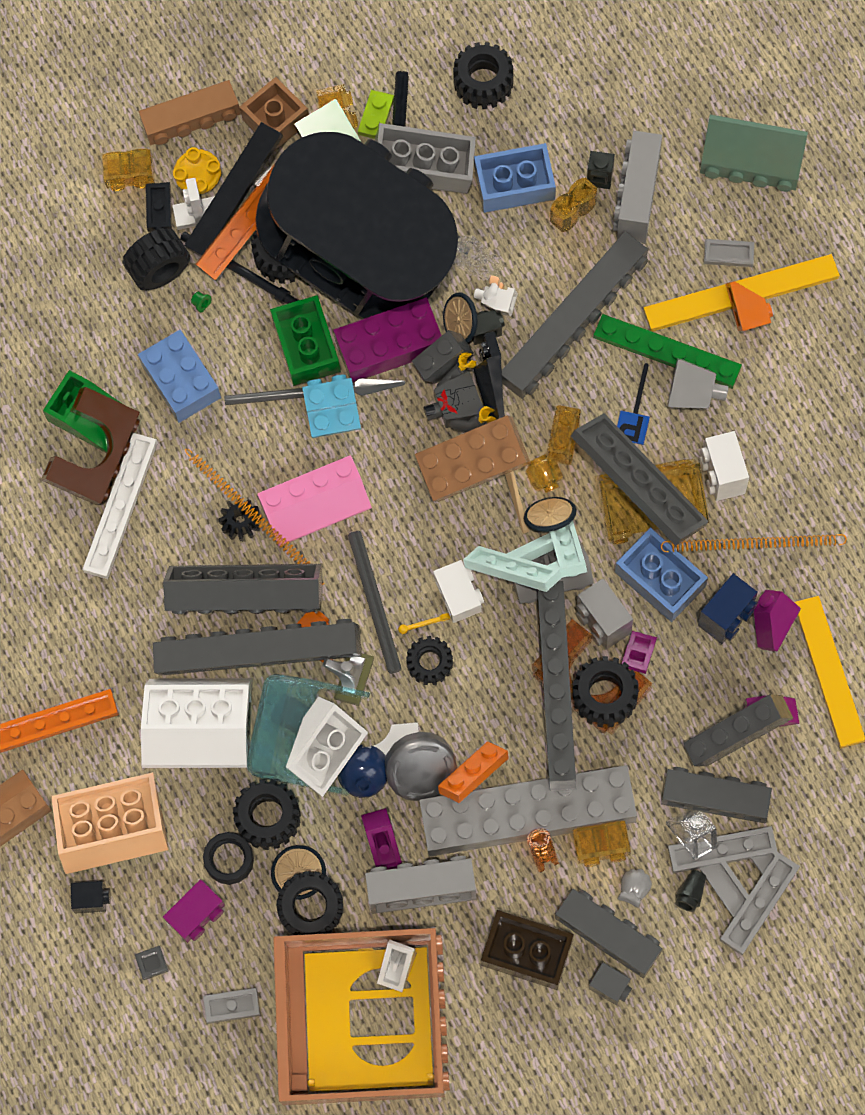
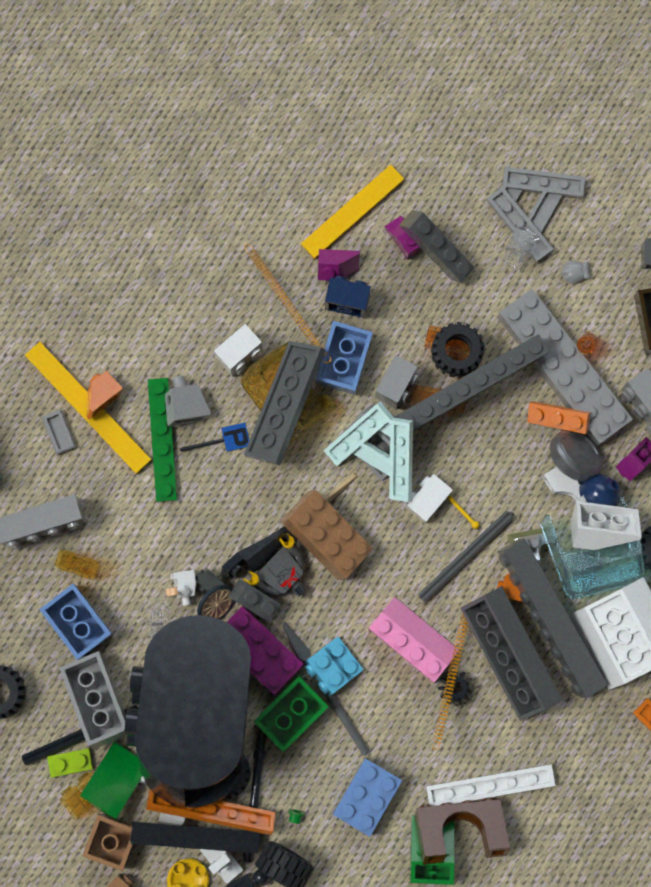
camera: 125 degrees left, 10 degrees up
(422, 647) = (499, 483): black tyre -> none
(544, 473) = (306, 480): clear yellow head -> none
(550, 514) = (336, 460): tan wheel -> none
(561, 443) = (269, 480): clear yellow brick -> none
(574, 315) = (167, 521): dark grey brick -> none
(600, 169) = (37, 560): pearl dark grey window -> none
(601, 843) = (560, 305): clear yellow brick -> none
(608, 932) = (619, 272): dark grey brick -> none
(639, 651) = (411, 345): magenta slope -> none
(691, 892) = (559, 231): pearl dark grey cone -> none
(717, 795) = (484, 245): dark grey brick -> none

